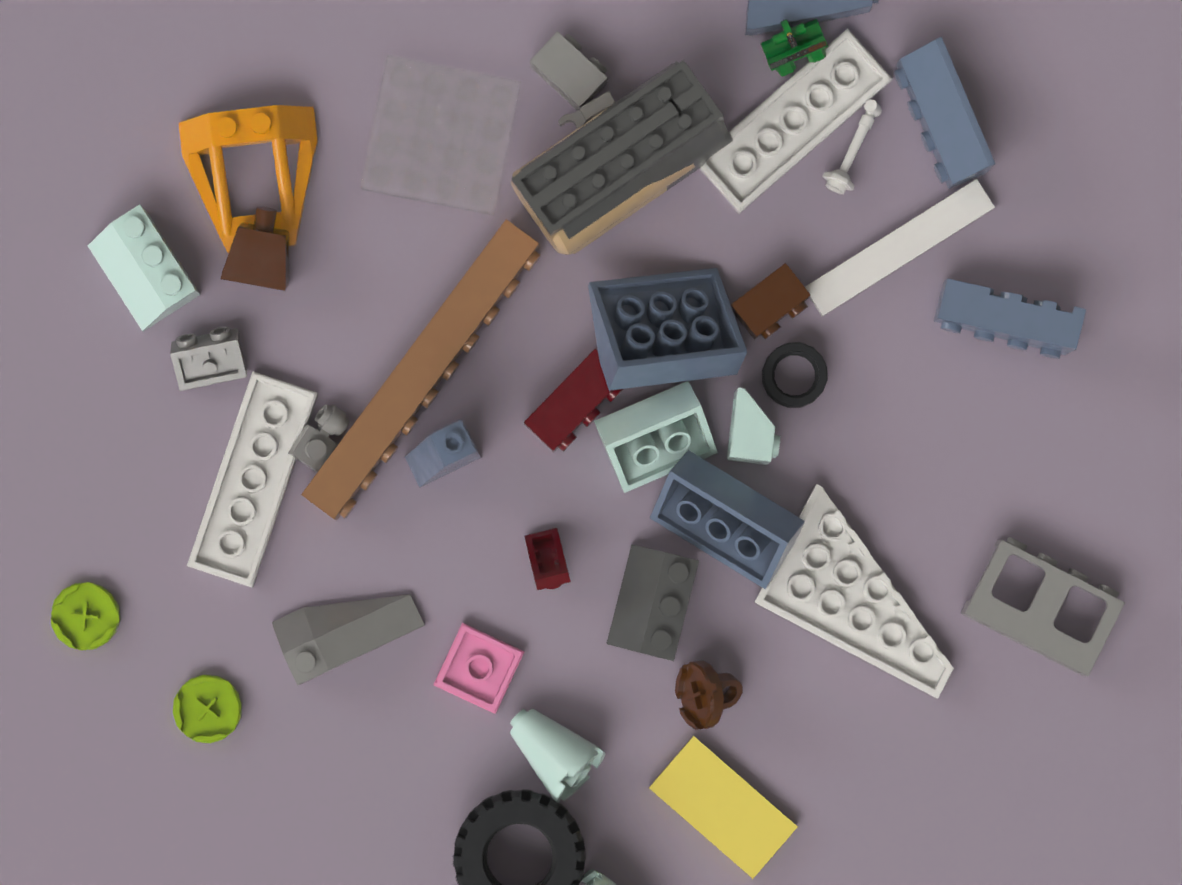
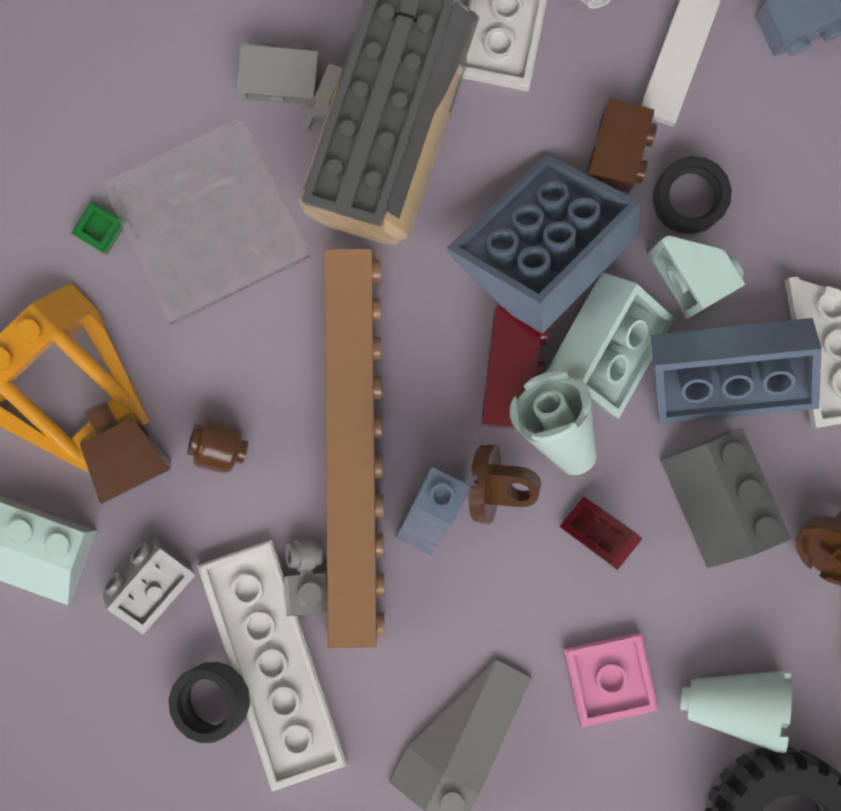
camera: 35 degrees left, 0 degrees up
(166, 468) = (184, 715): none -> black tyre
(329, 298) = (217, 445): none -> reddish brown head
(361, 82) = (98, 228): none -> green tile
(499, 470) = (495, 485): none -> reddish brown tile
(574, 459) = (557, 420): none -> light aqua cone

